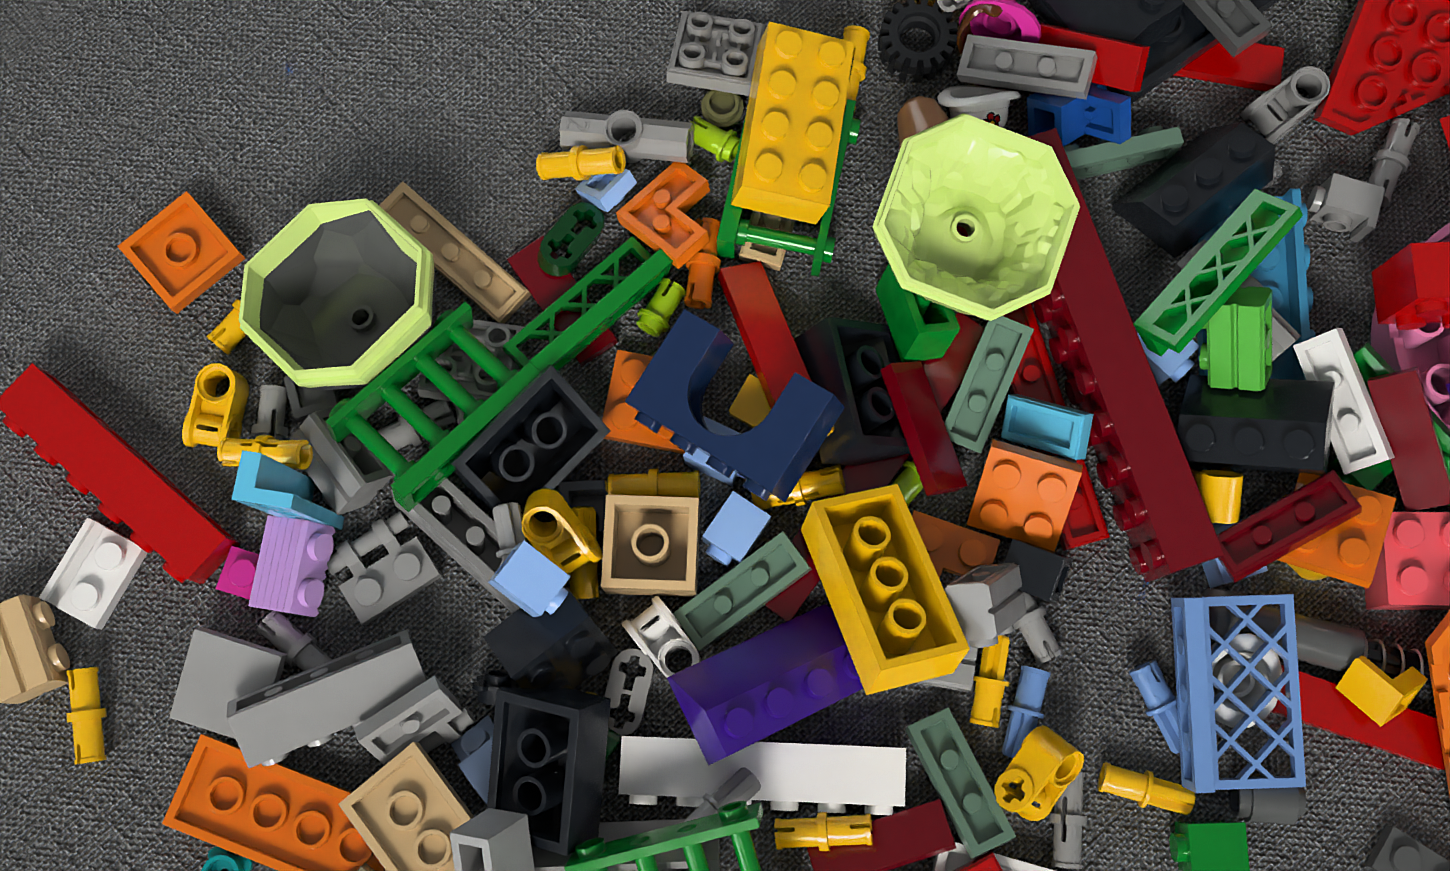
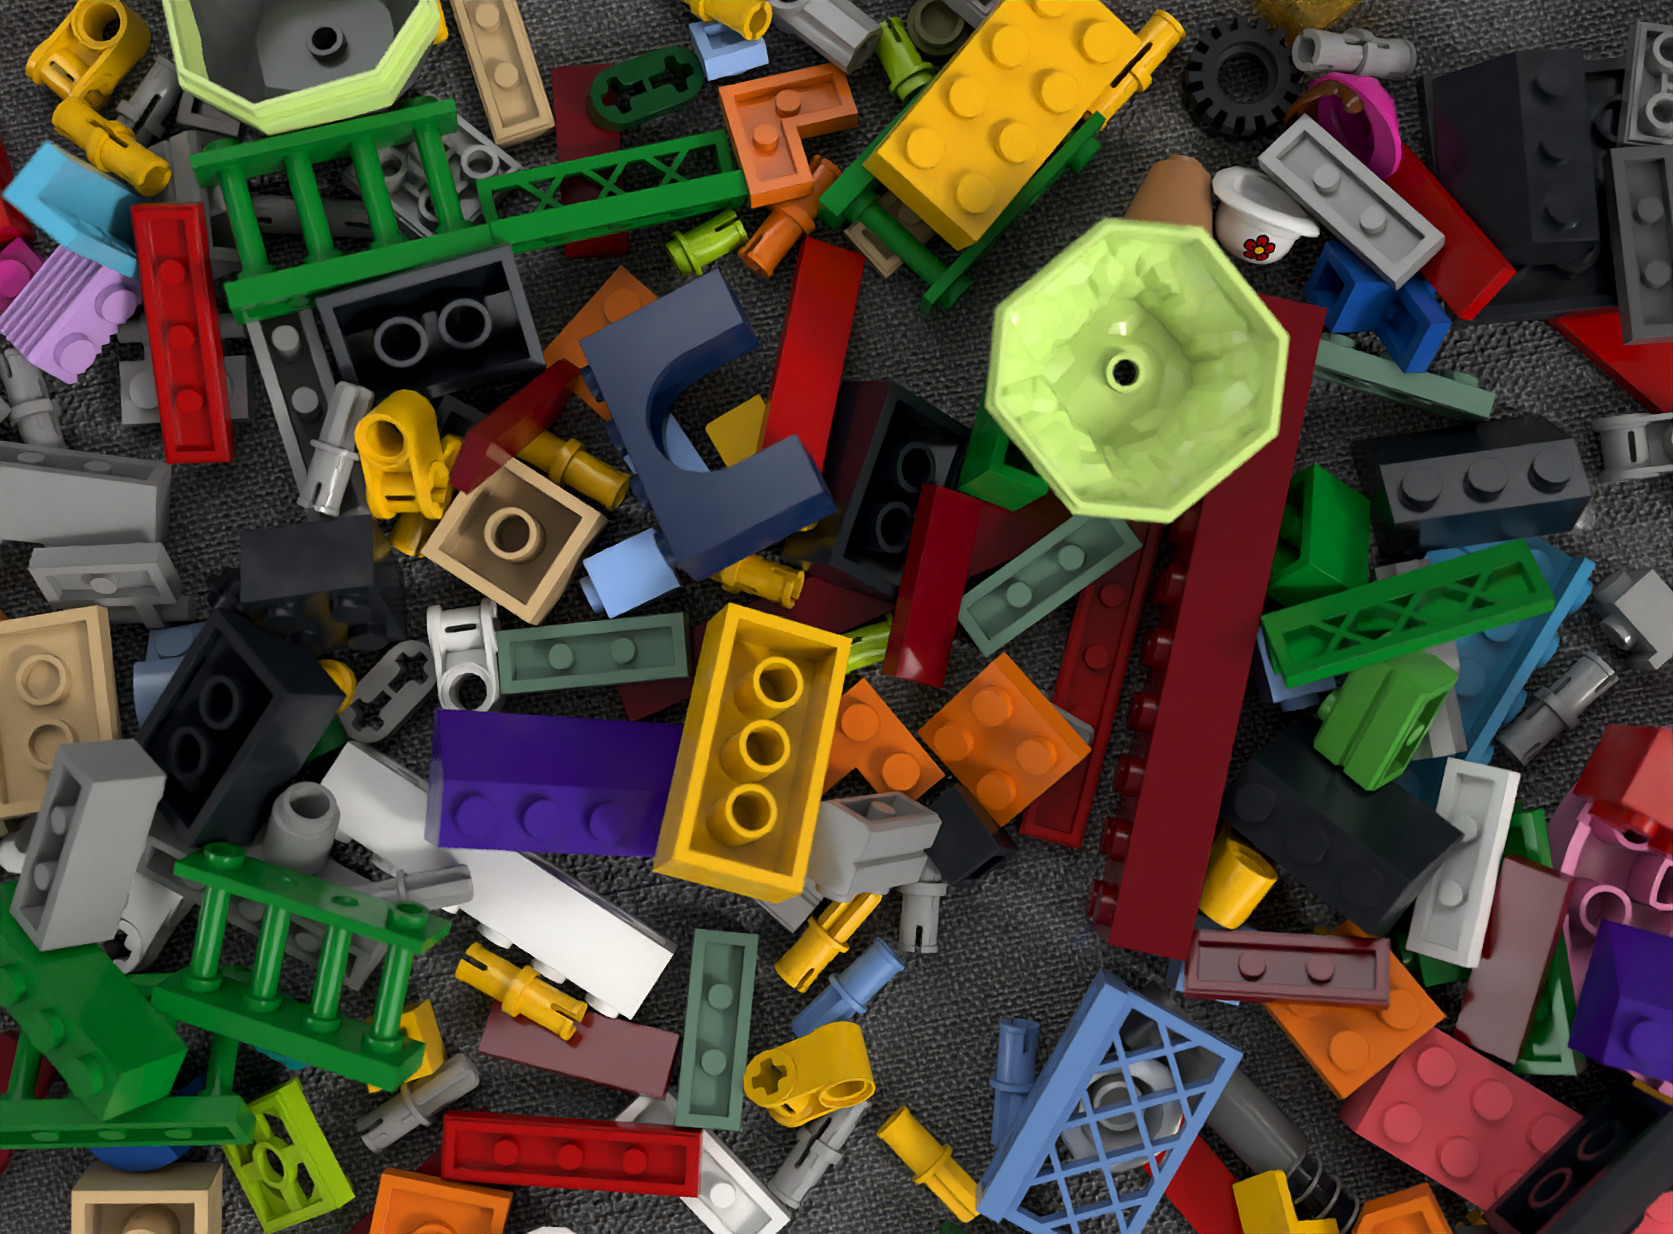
camera: 35 degrees right, 10 degrees up
(374, 539) = (183, 331): none -> red tile
(531, 580) = (325, 501): light blue brick -> none
(615, 474) = (513, 426): none -> dark red tile
(627, 804) = (302, 828): none -> light grey brick
(1047, 426) = (1084, 674): medium azure tile -> none
(1137, 264) = (1320, 539): none -> green brick
(1331, 286) = (1556, 708): none -> light grey pin

